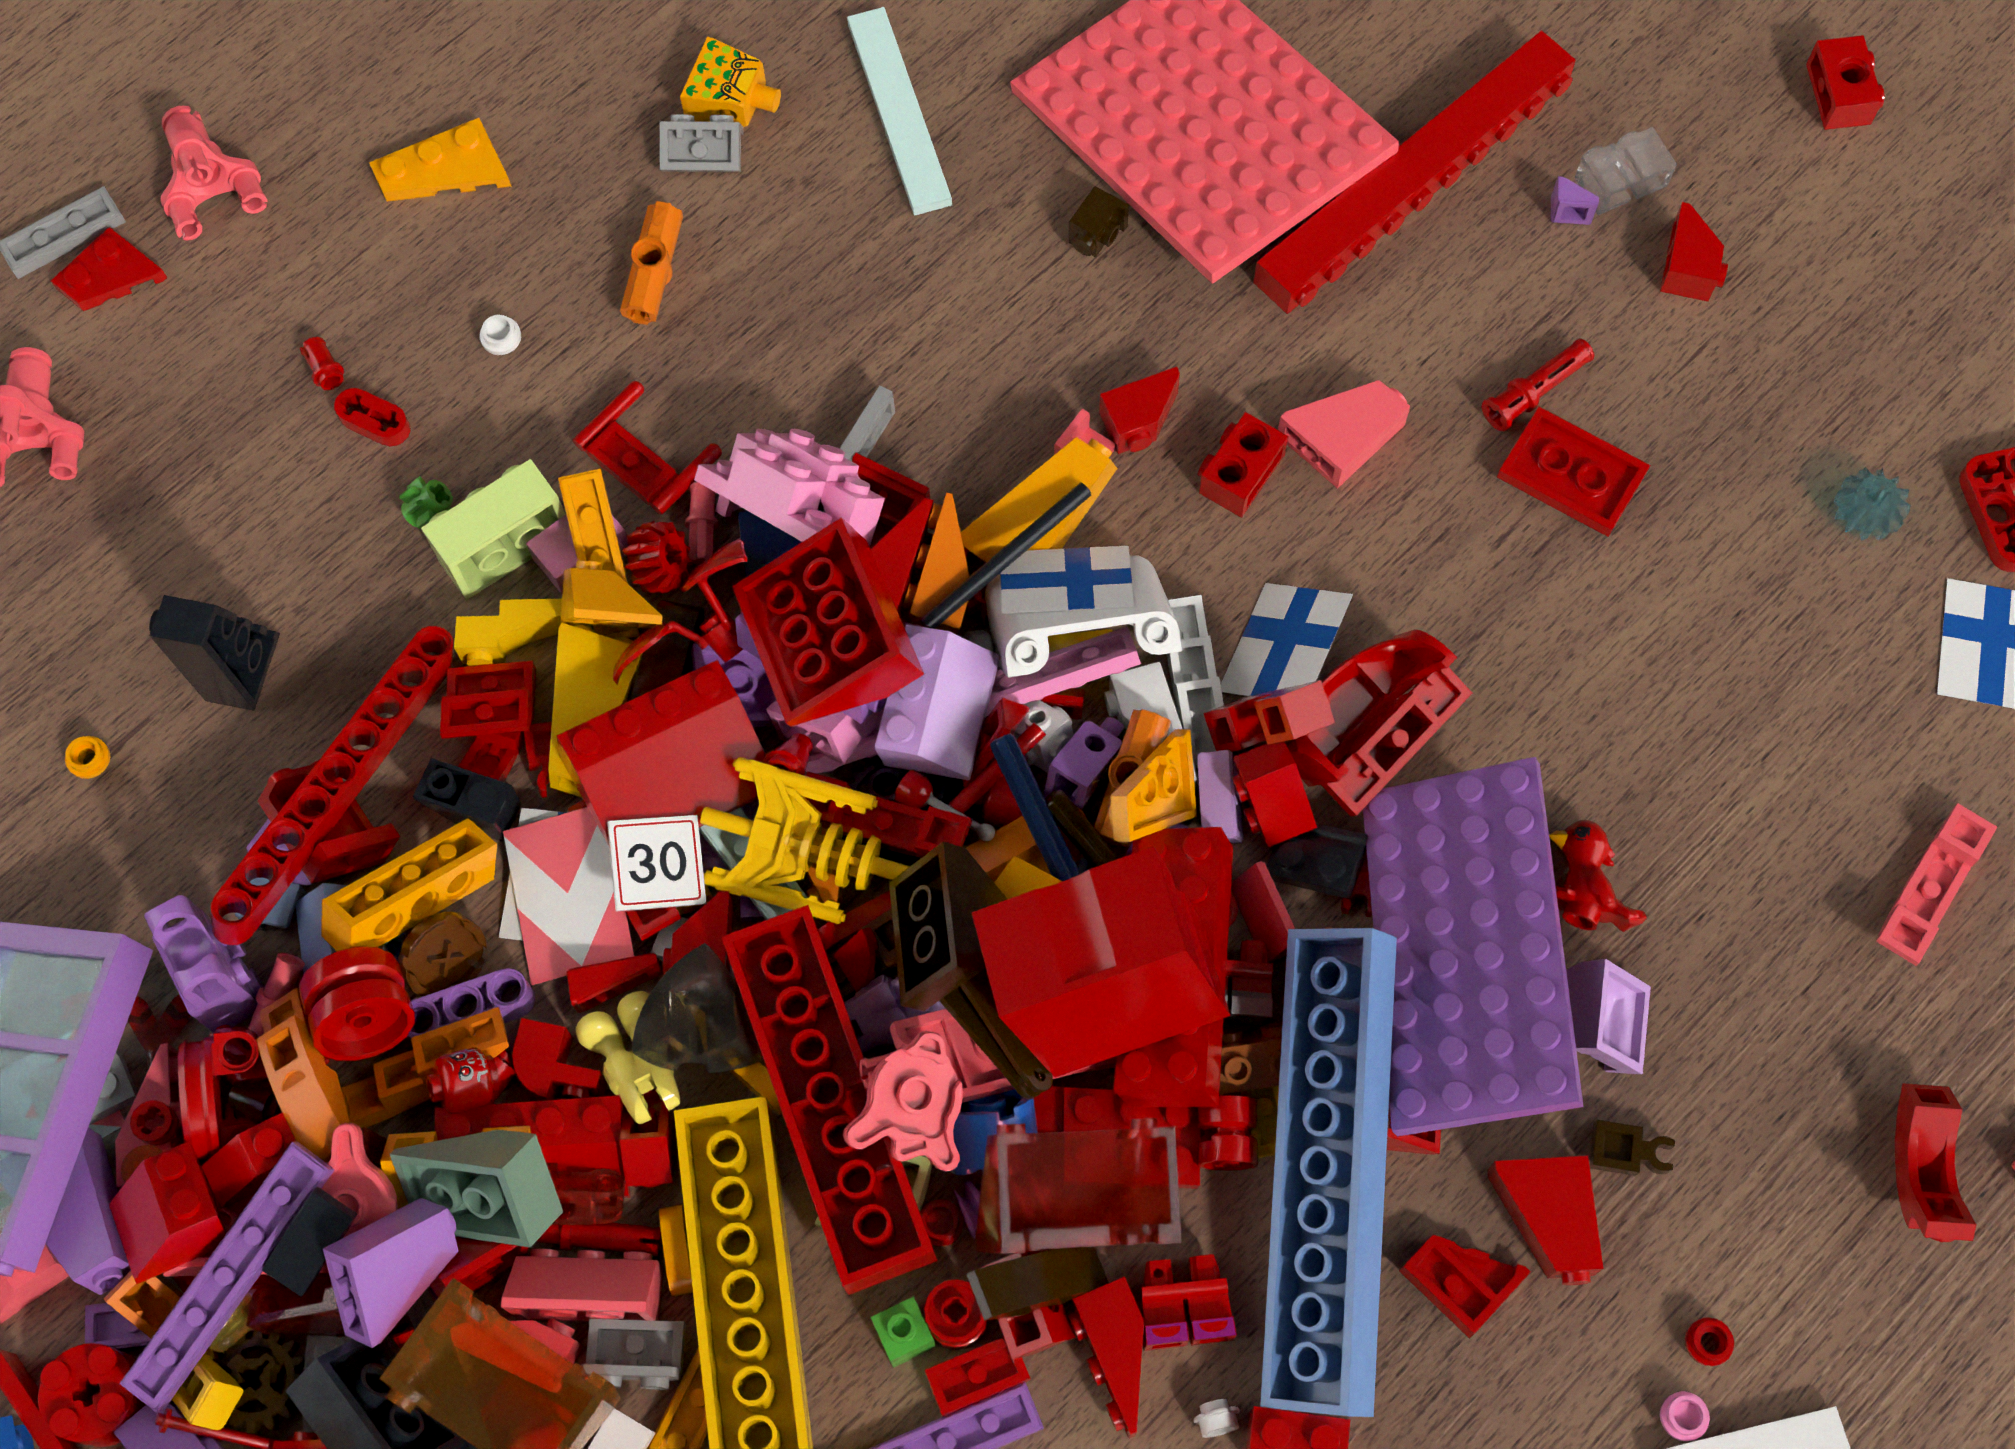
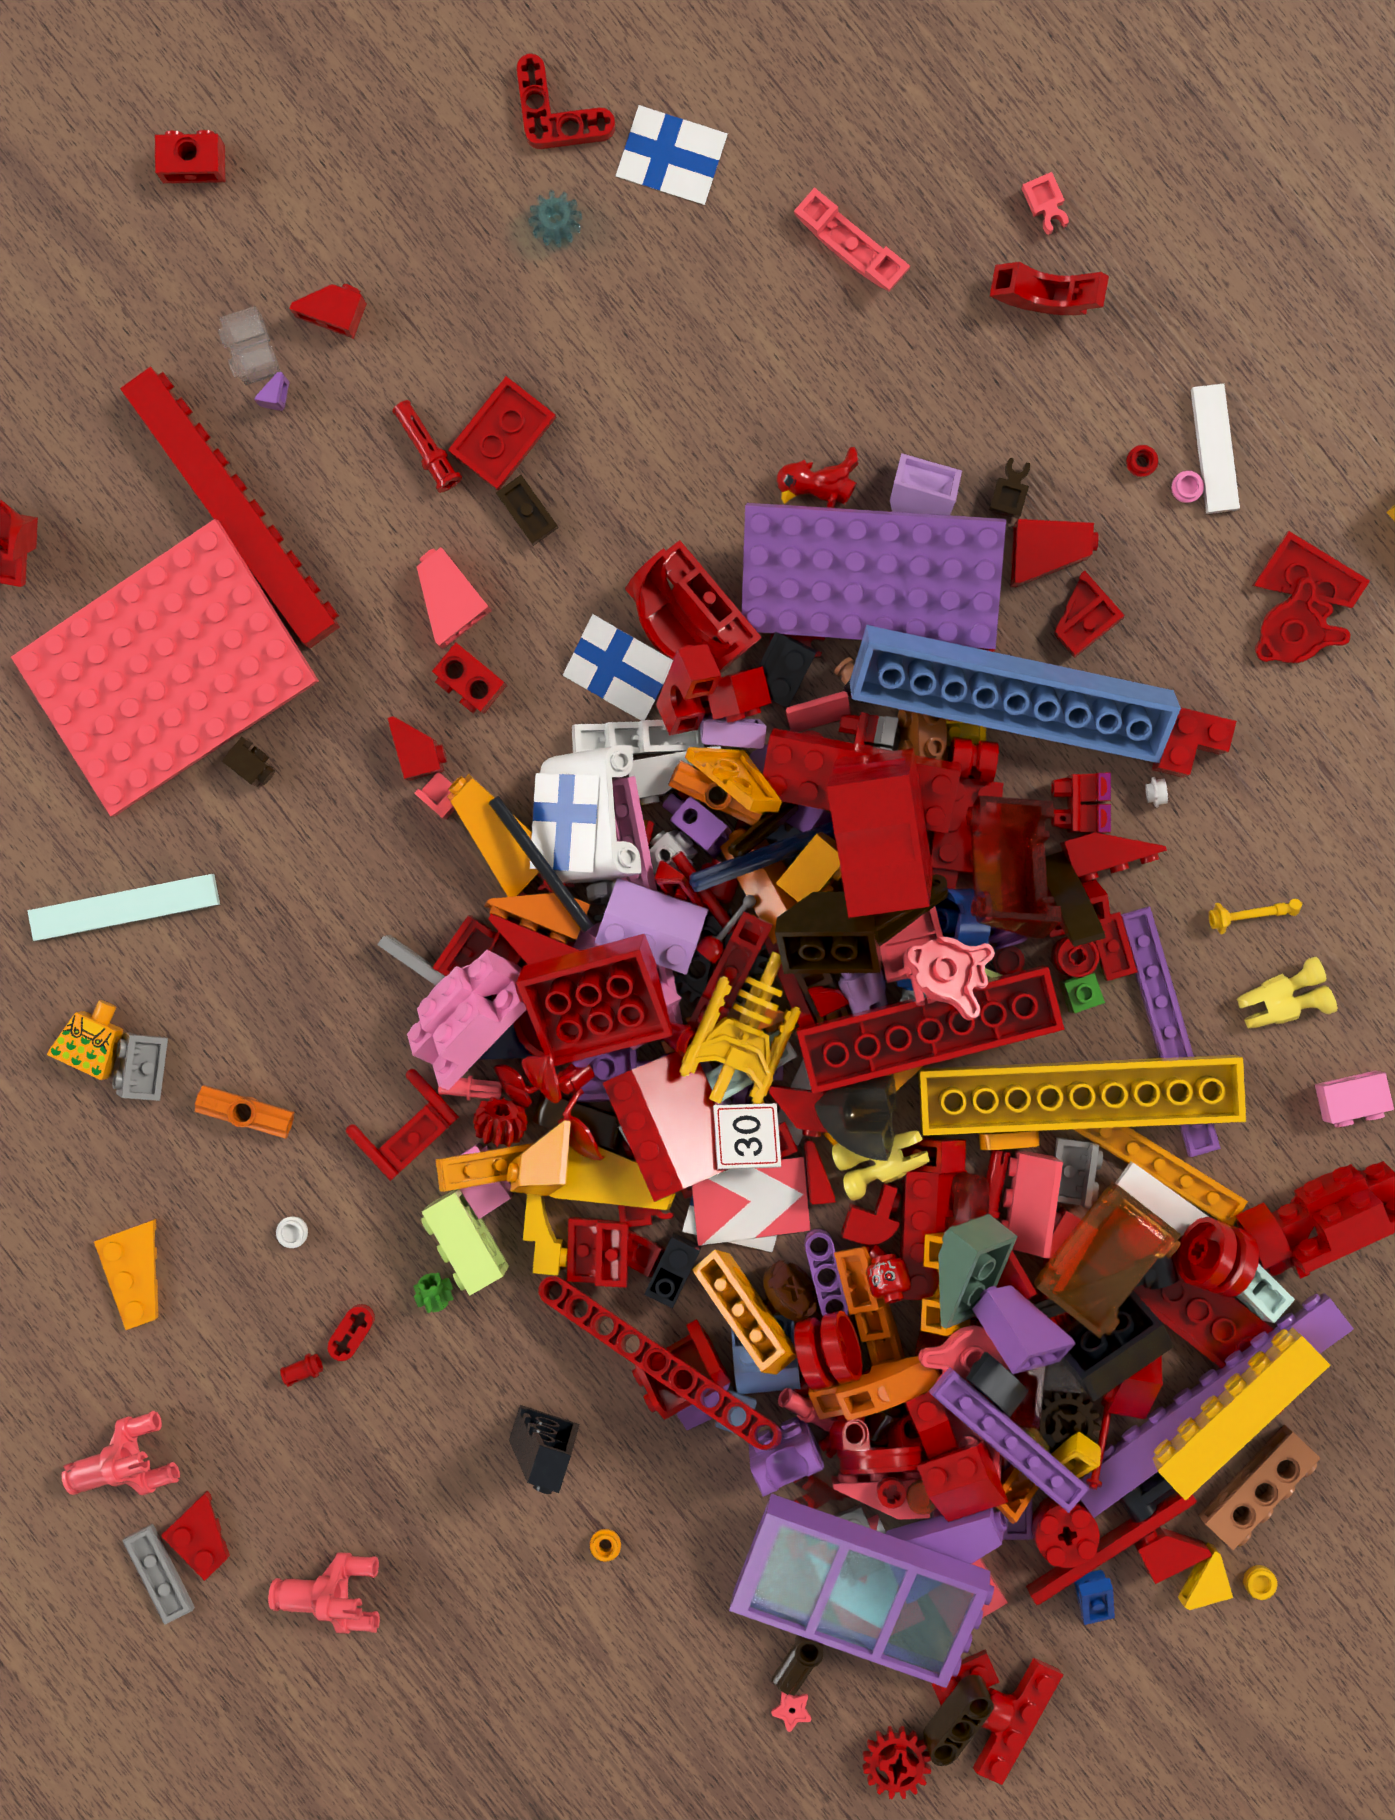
camera: 85 degrees left, 20 degrees up
(1477, 511) = (527, 510): none -> dark brown plate

